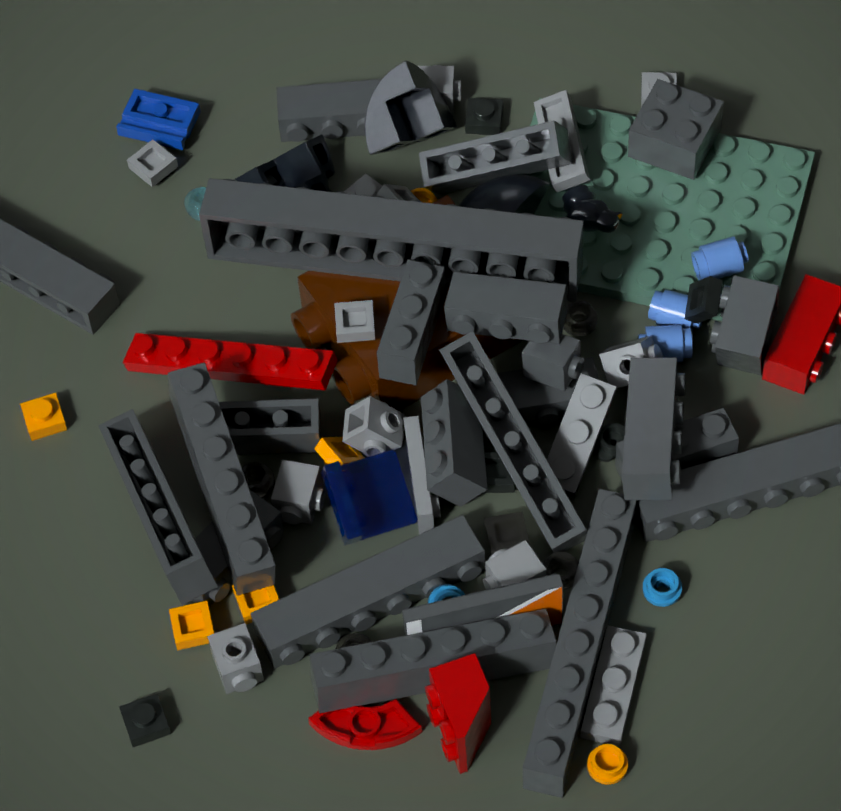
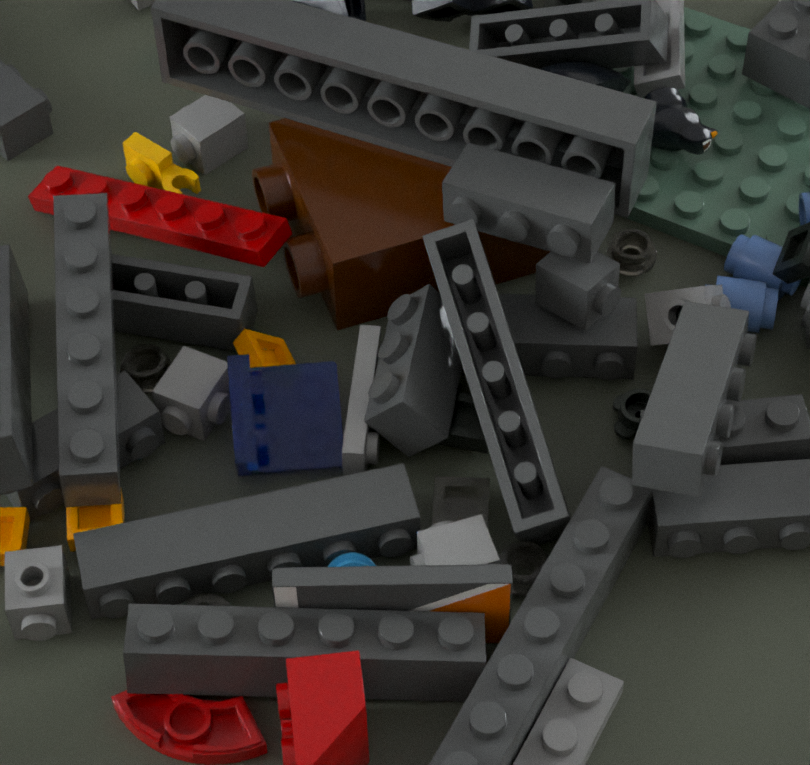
camera: 10 degrees right, 5 degrees down
(211, 321) = (154, 167): none -> yellow plate
(241, 286) = (208, 133): none -> light grey brick
(354, 321) = (322, 184): light grey plate -> none
(373, 427) = (318, 329): light grey brick -> none
(411, 322) = (394, 197): dark grey brick -> none
(580, 430) = (595, 388): light grey plate -> none
(666, 578) = (662, 608): dark azure plate -> none

